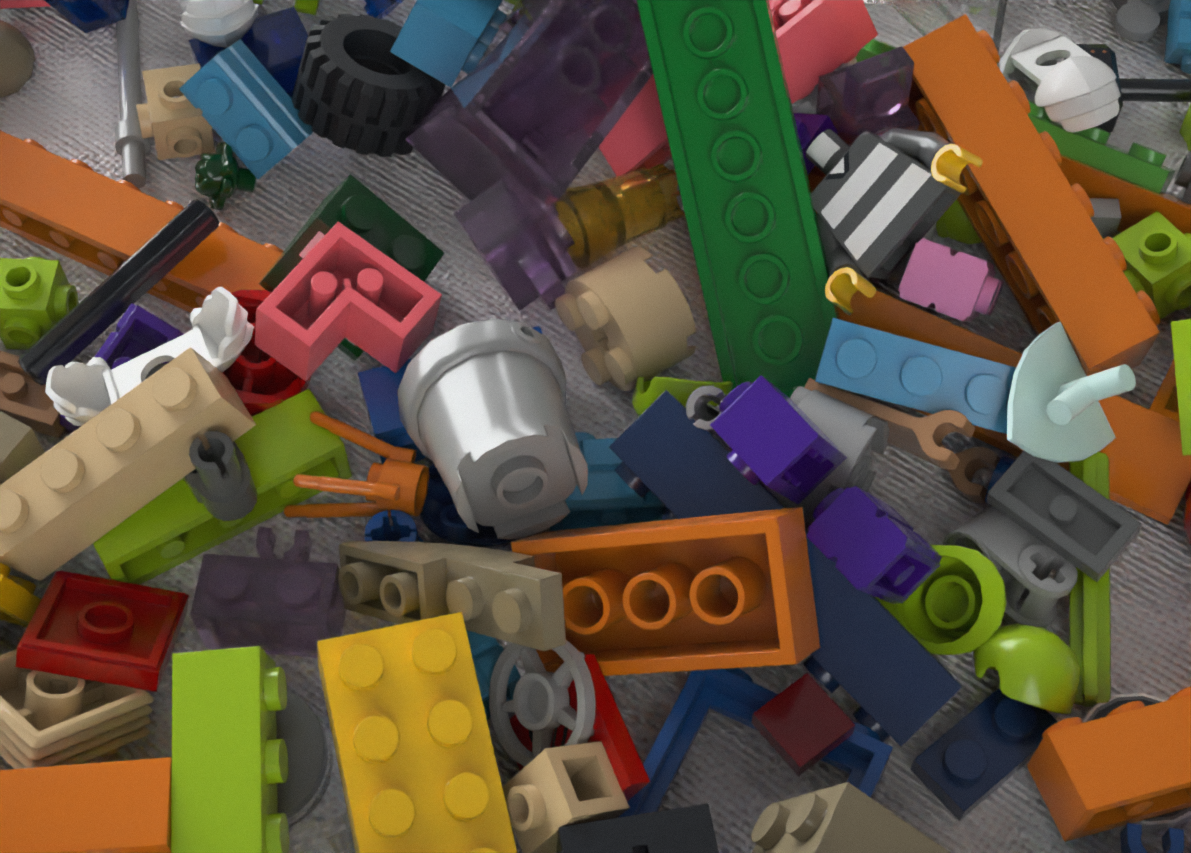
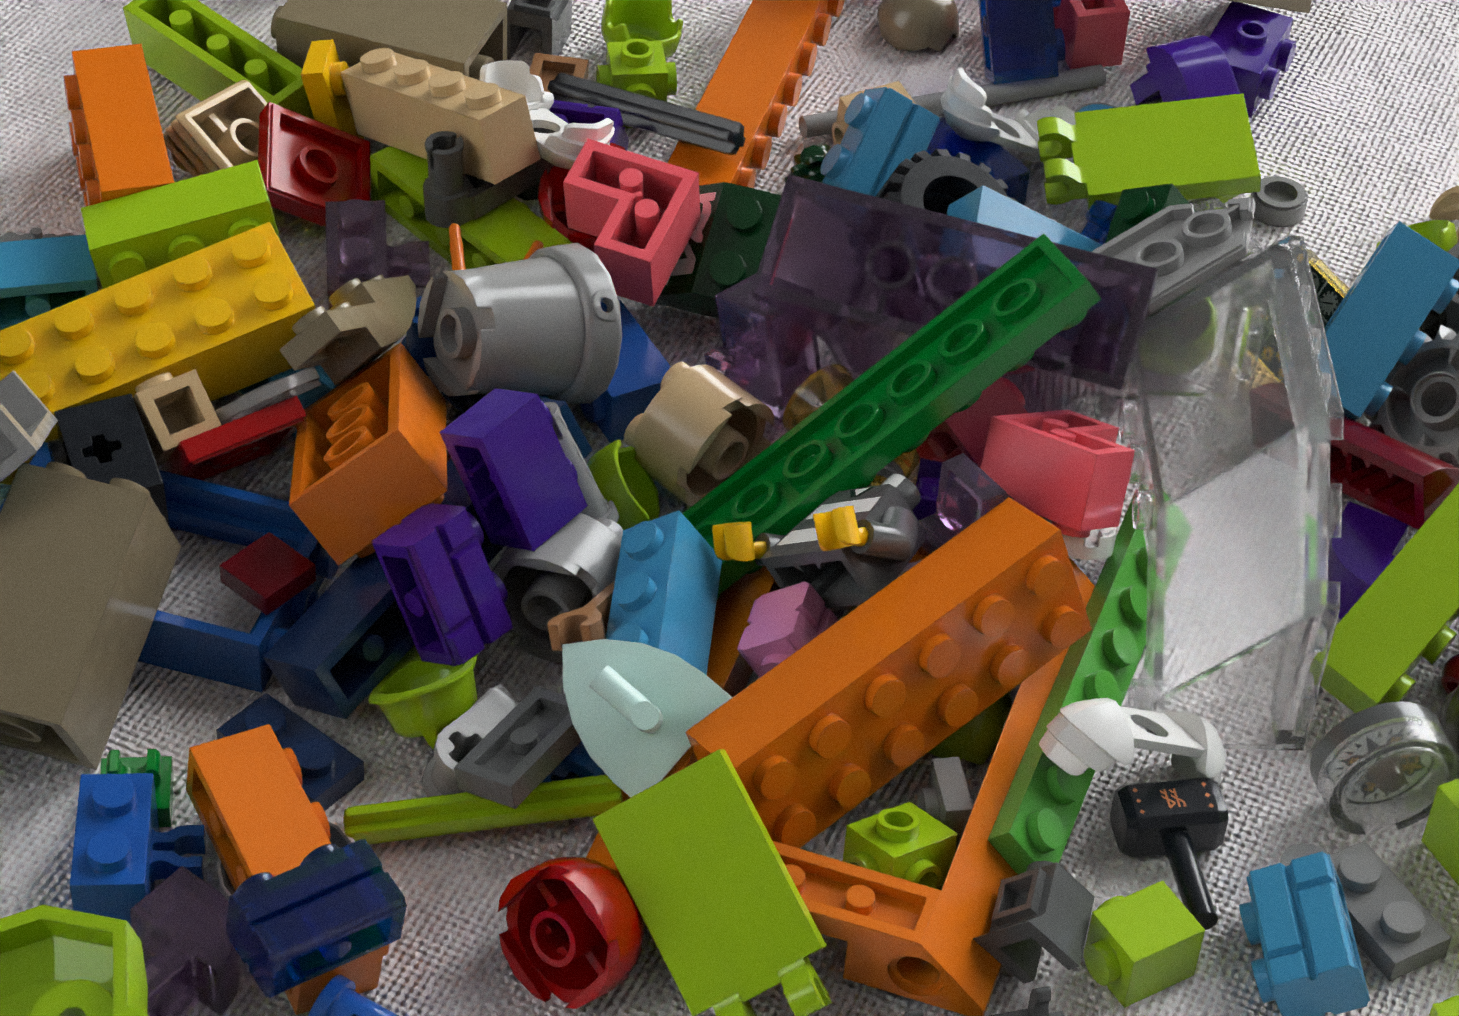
camera: 75 degrees right, 15 degrees down
(1031, 666) = (358, 753): lime hair -> none

